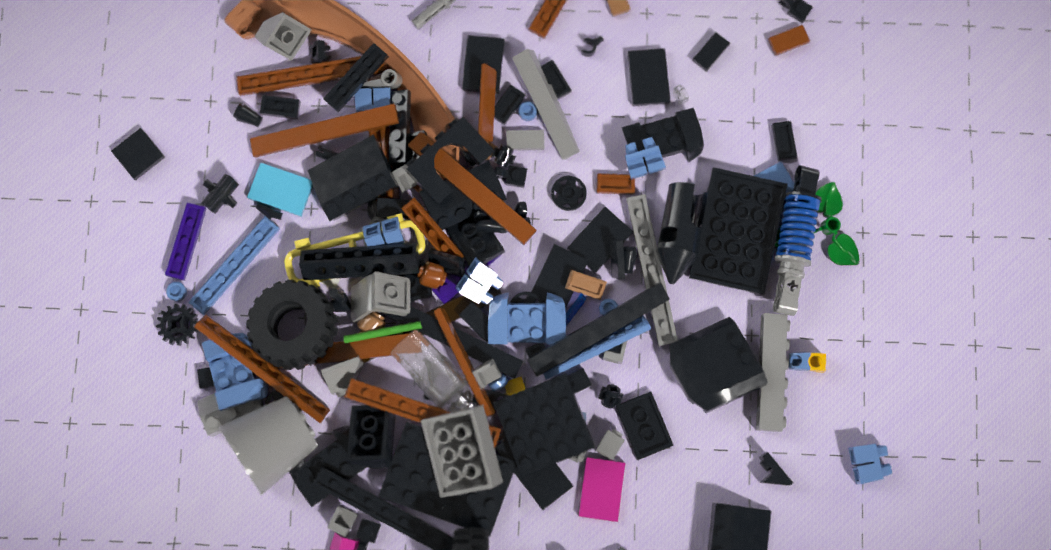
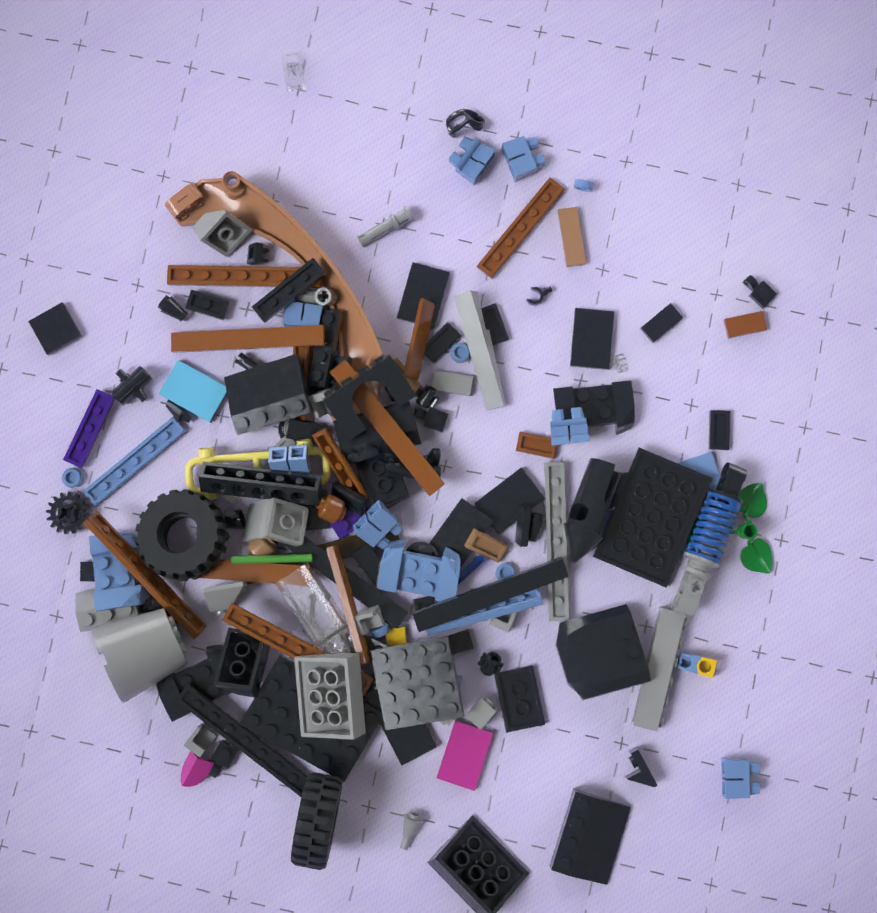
camera: 15 degrees right, 5 degrees up
(568, 193) = (486, 446): black wheel -> none

